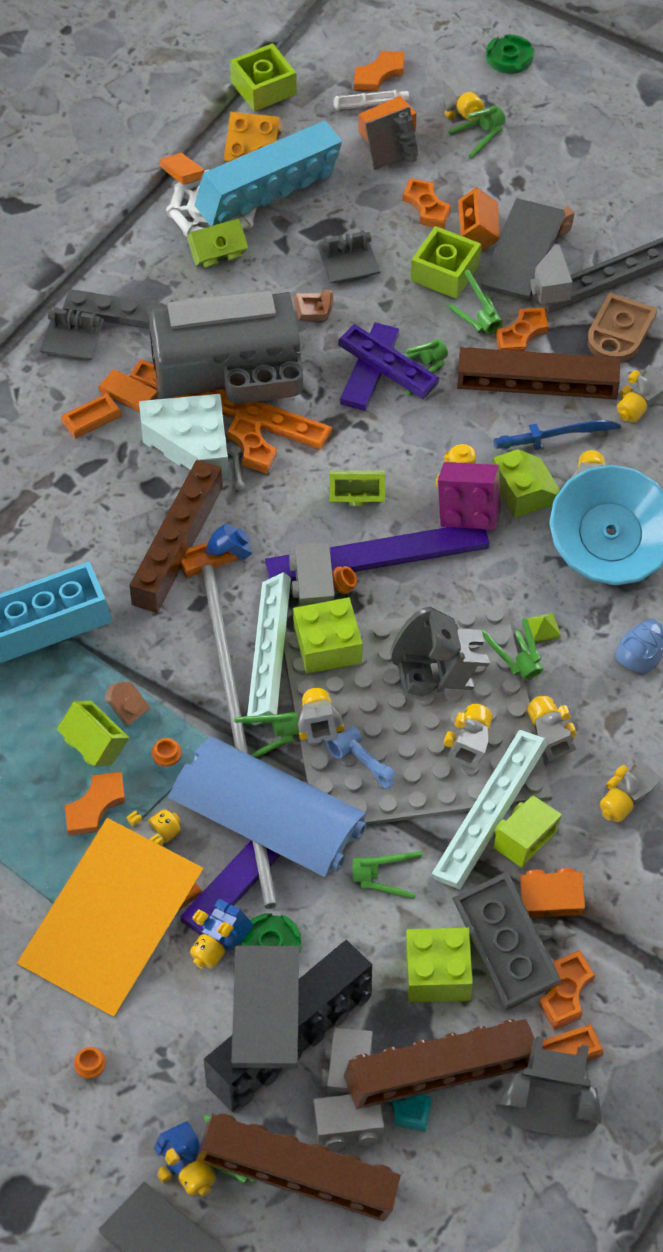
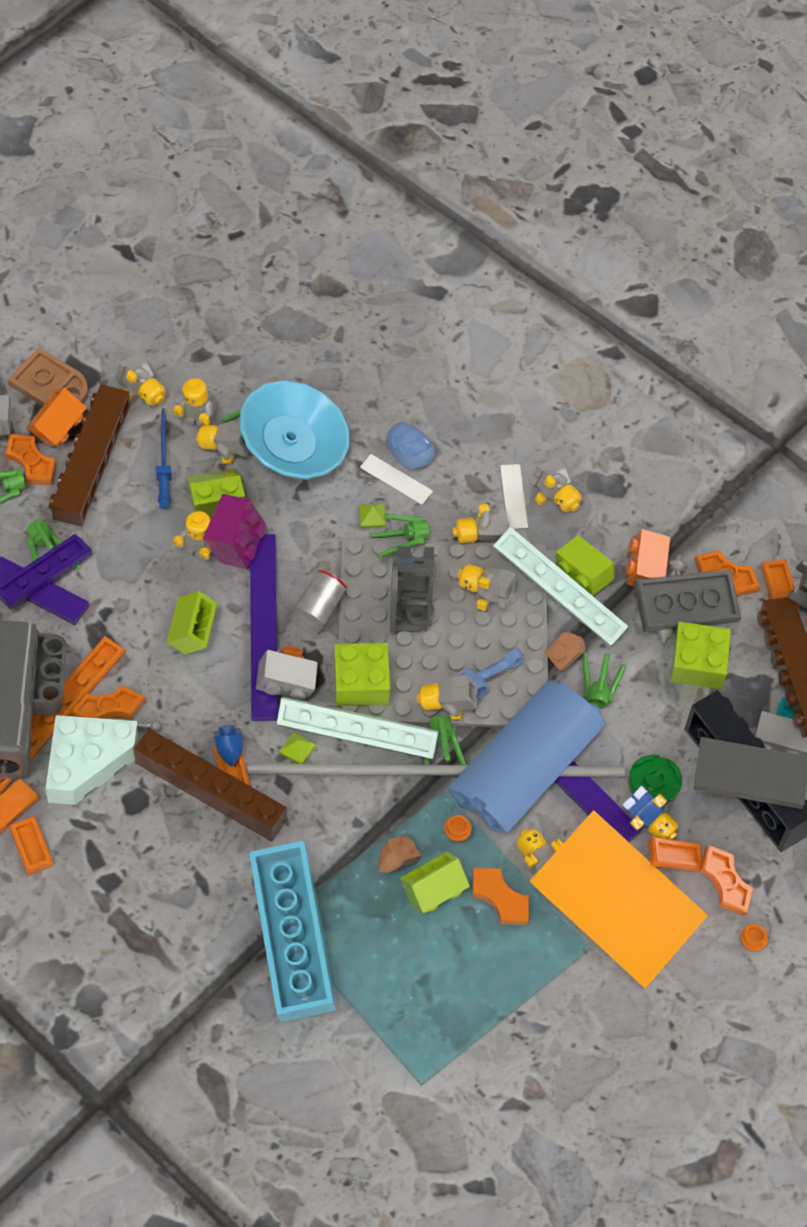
camera: 85 degrees left, 5 degrees up
(143, 1033) = (720, 869): none -> orange tile
(175, 968) = (675, 854): none -> orange tile
(240, 607) = (297, 748): none -> lime slope
(410, 587) = (318, 602): none -> flat silver piece
(414, 829) = (566, 650): none -> nougat plate
(568, 332) = (57, 417): none -> orange brick
(598, 644) = (396, 479): none -> white sticker
(610, 758) = (514, 496): none -> white sticker
(625, 447) = (196, 403): none -> piece

